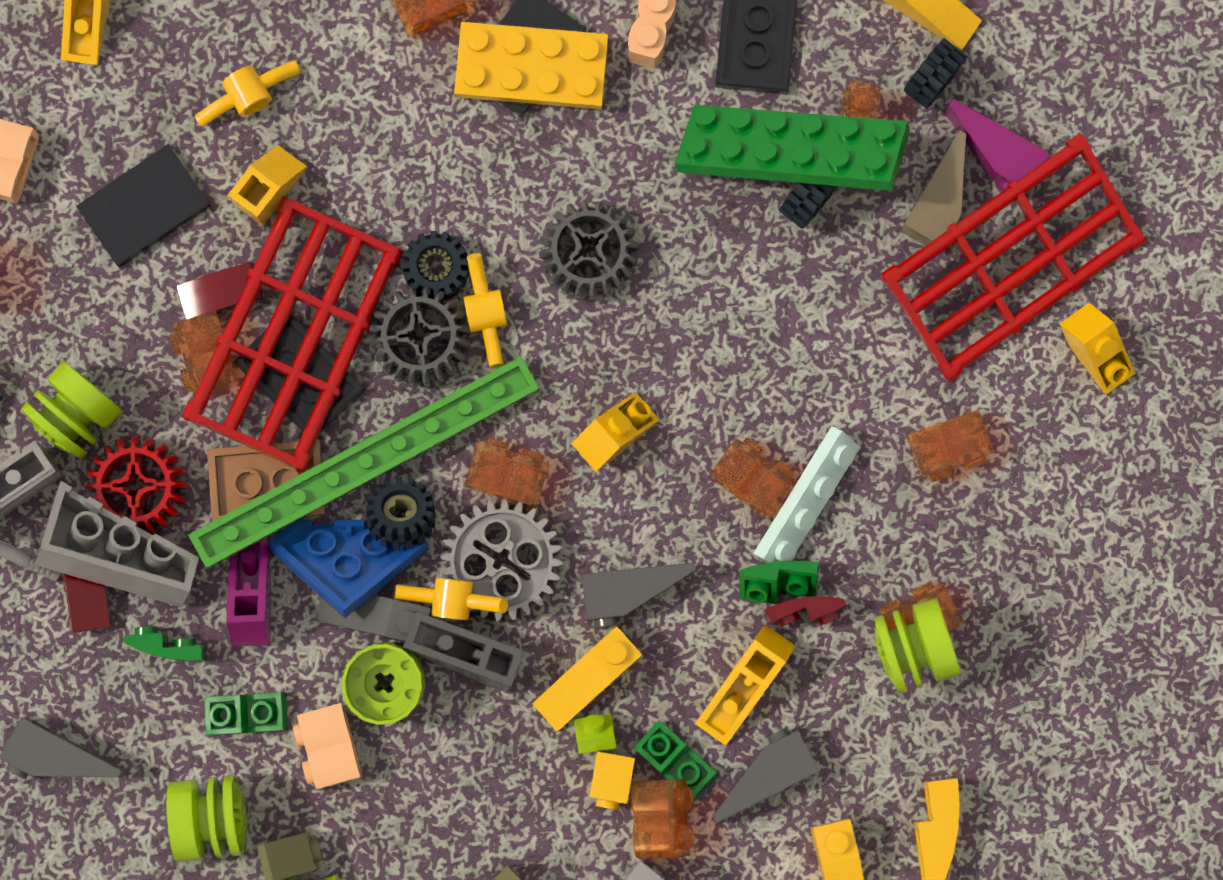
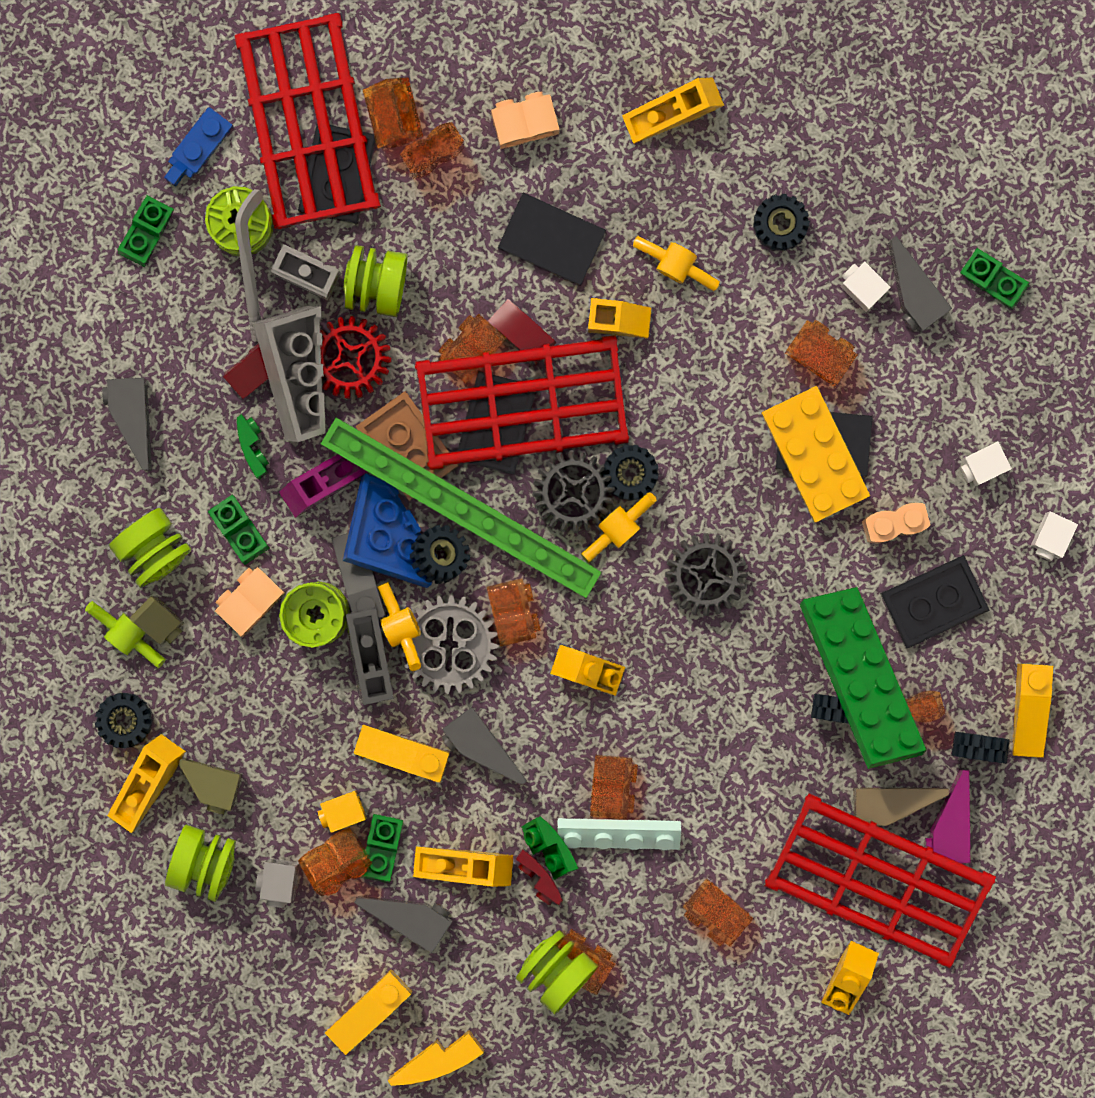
camera: 60 degrees right, 5 degrees up
(594, 733) = (367, 781): lime plate -> none

